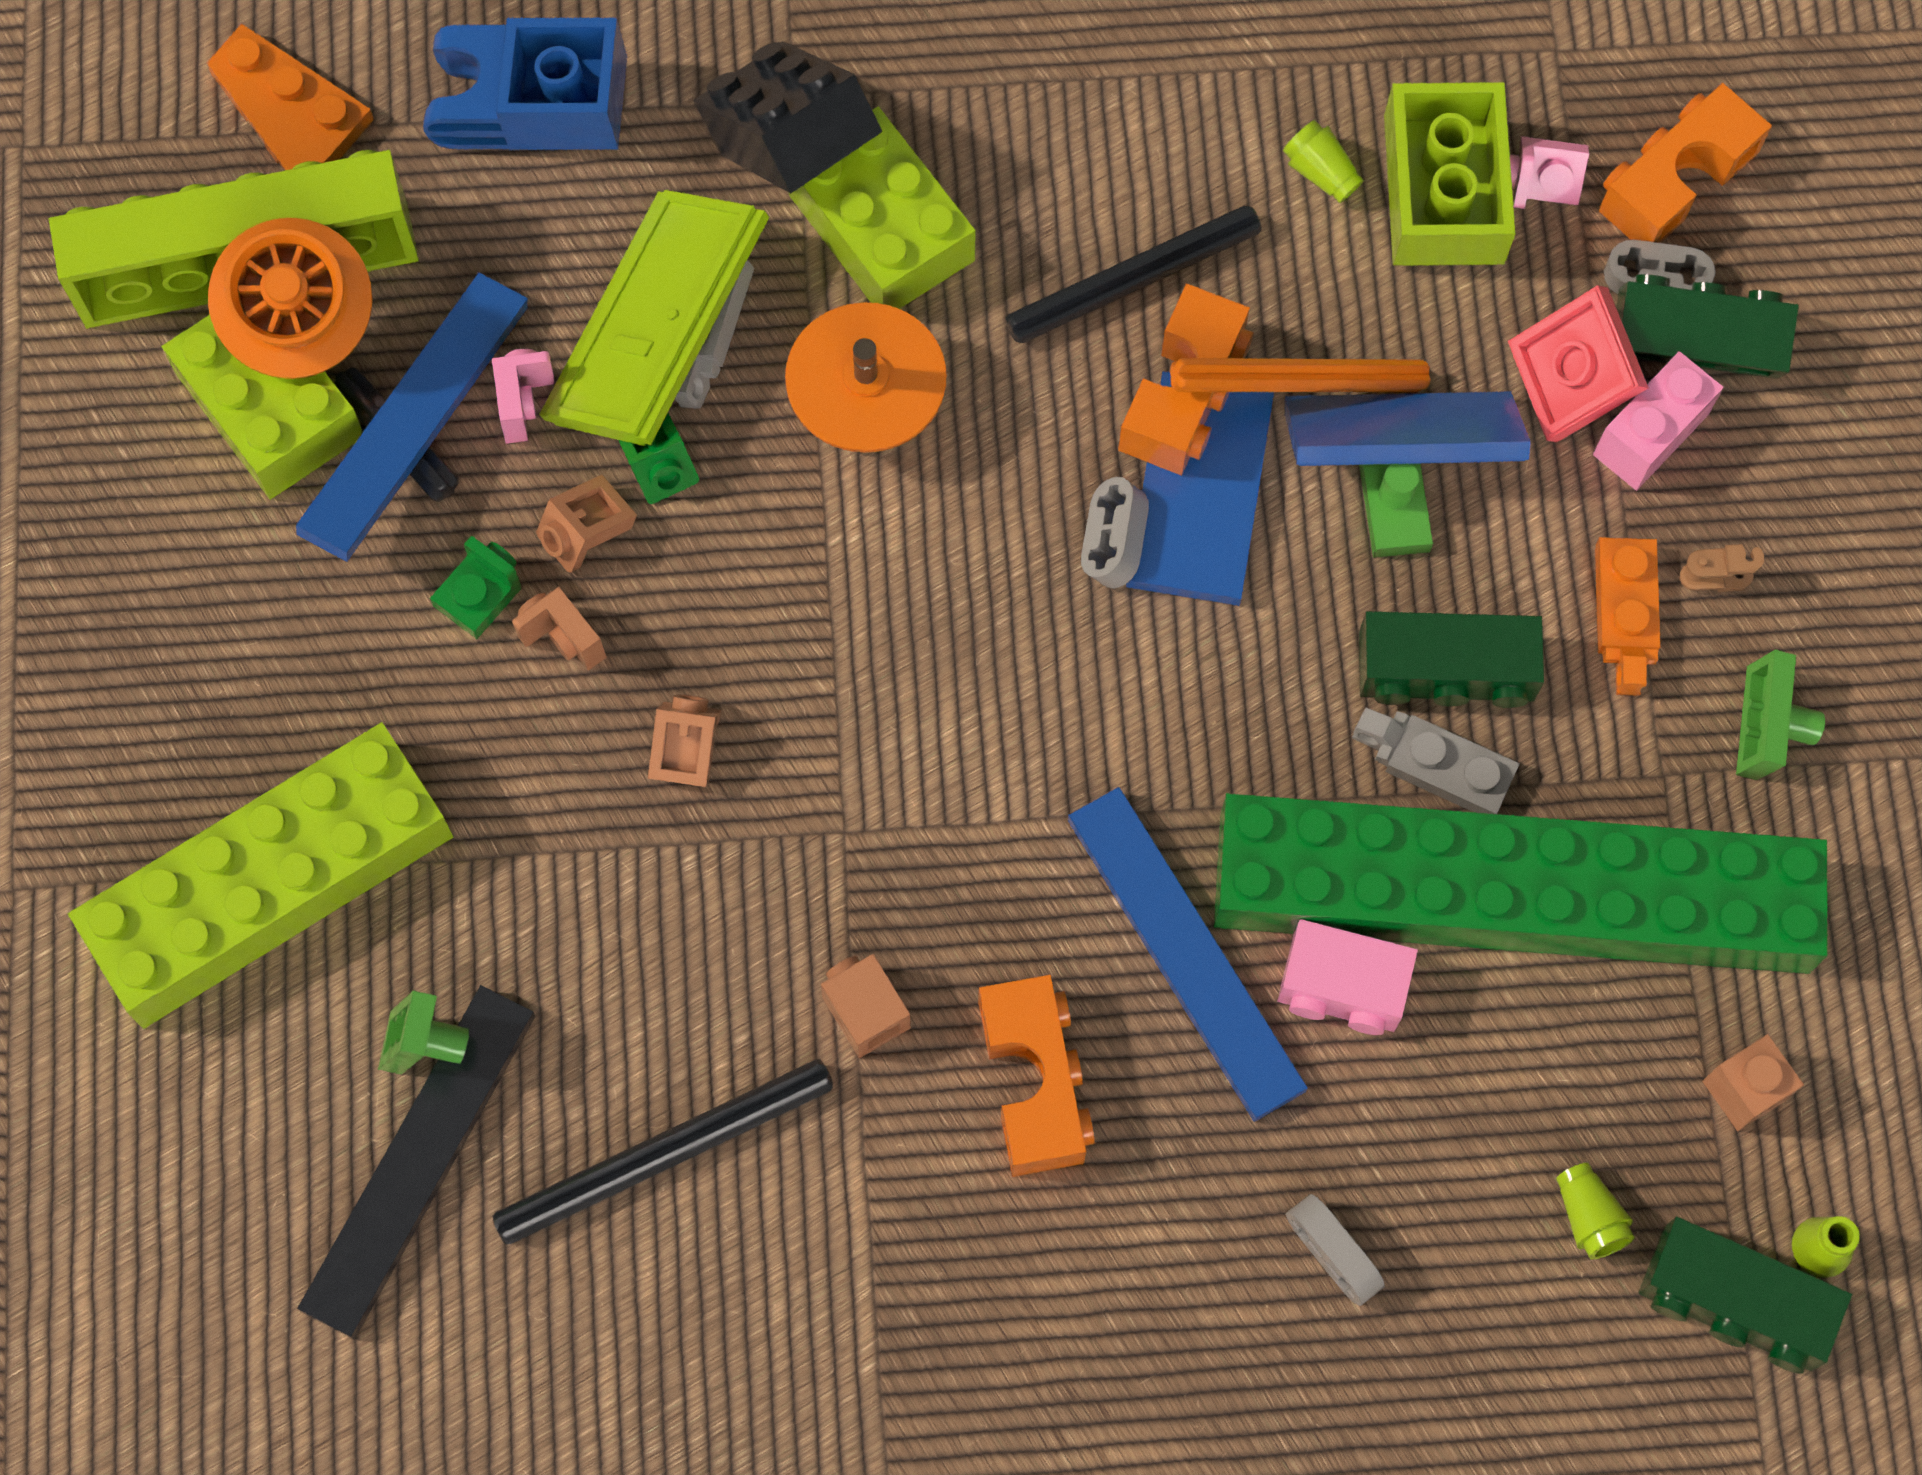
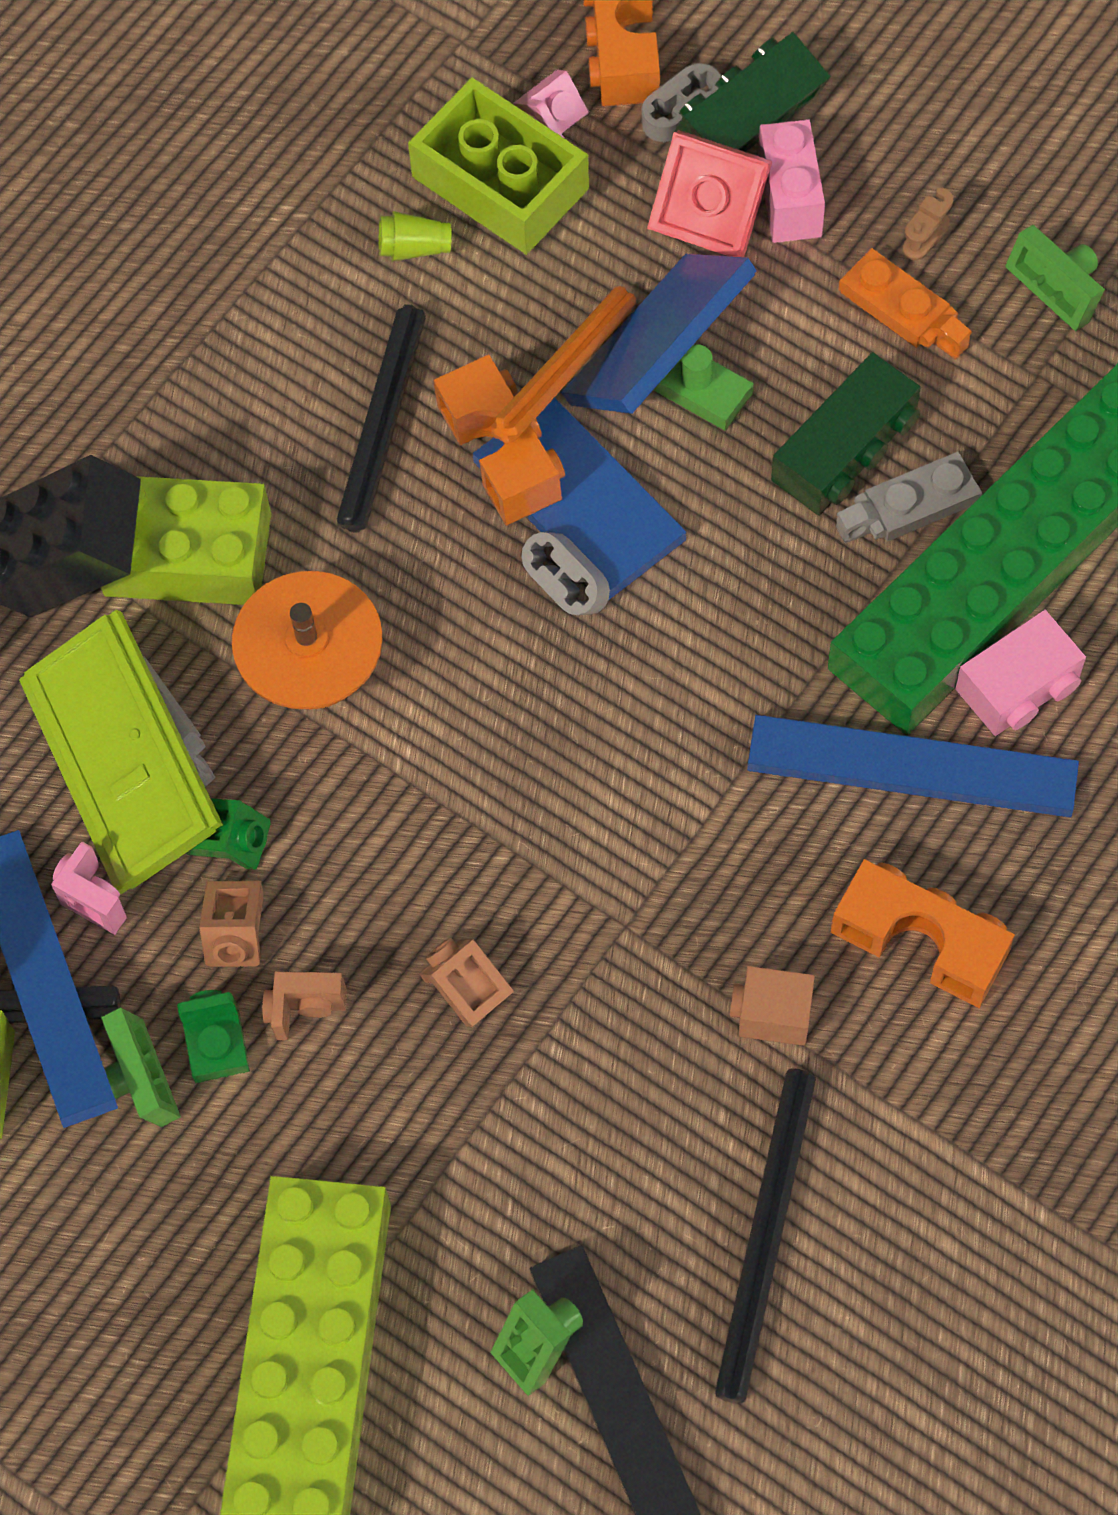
camera: 45 degrees left, 5 degrees down
(400, 552) = (138, 1069): none -> bright green tile

